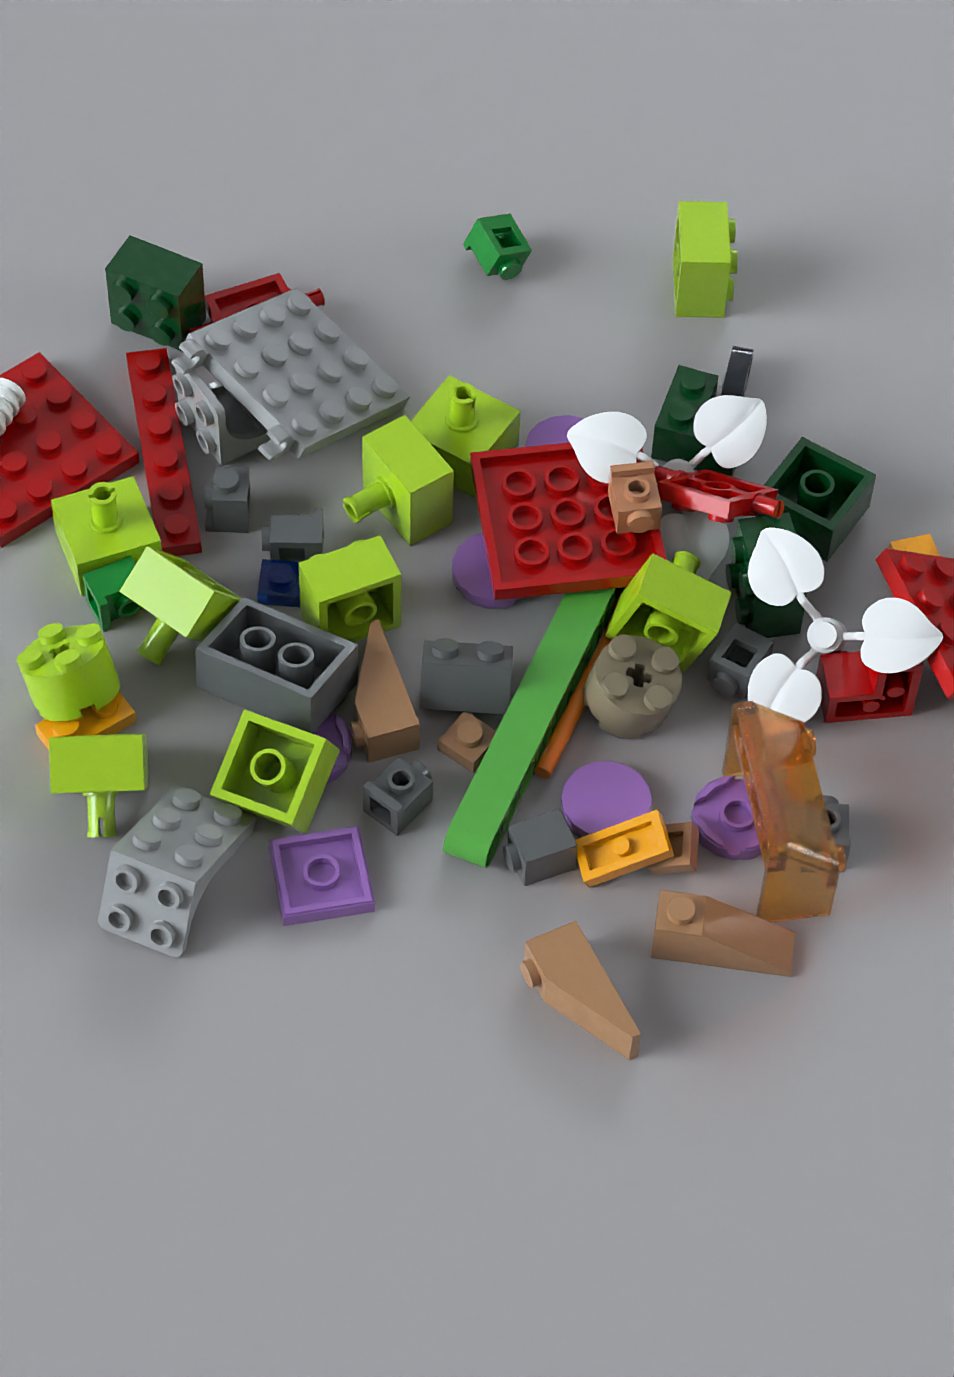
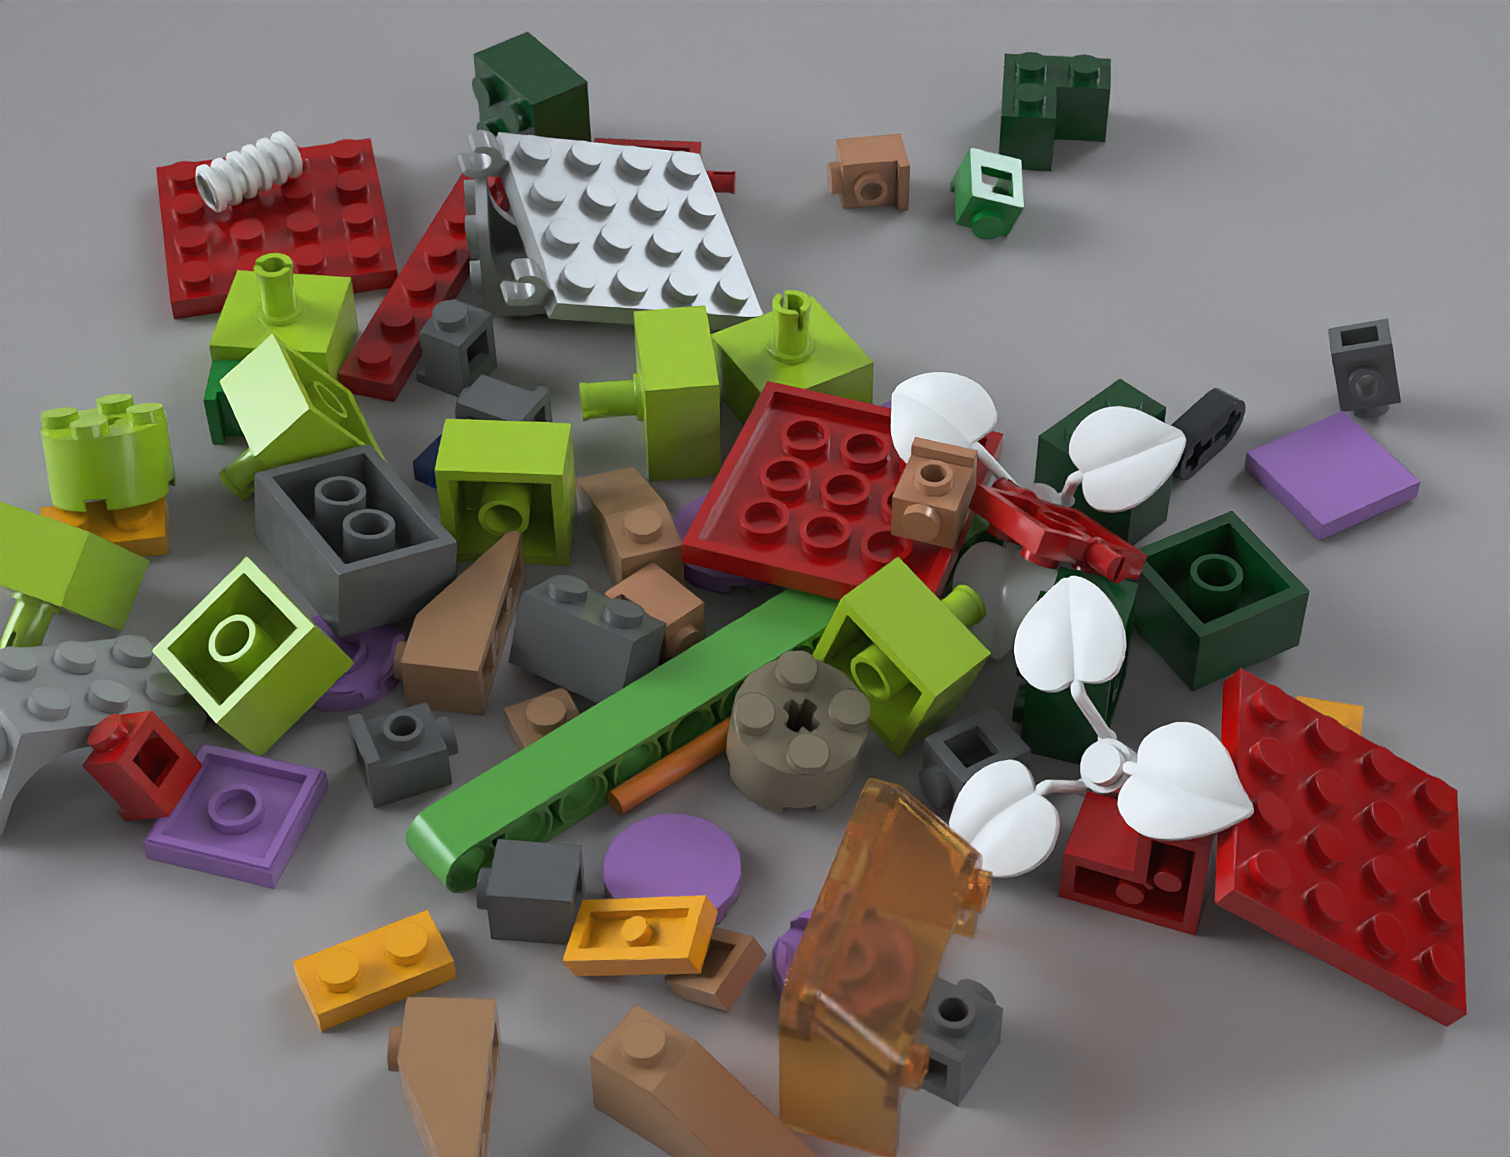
camera: 30 degrees right, 10 degrees down
(245, 870) = (140, 764): none -> red brick
(409, 255) = (870, 172): none -> nougat brick
(441, 591) = (630, 524): none -> medium nougat slope
(475, 934) = (374, 970): none -> light orange plate
(492, 156) = (1051, 101): none -> dark green brick
(494, 627) = (666, 601): none -> nougat brick
(703, 259) = (1237, 278): lime brick -> none
(816, 304) = (1360, 352): none -> dark grey brick
(825, 379) = (1331, 475): none -> medium lavender tile

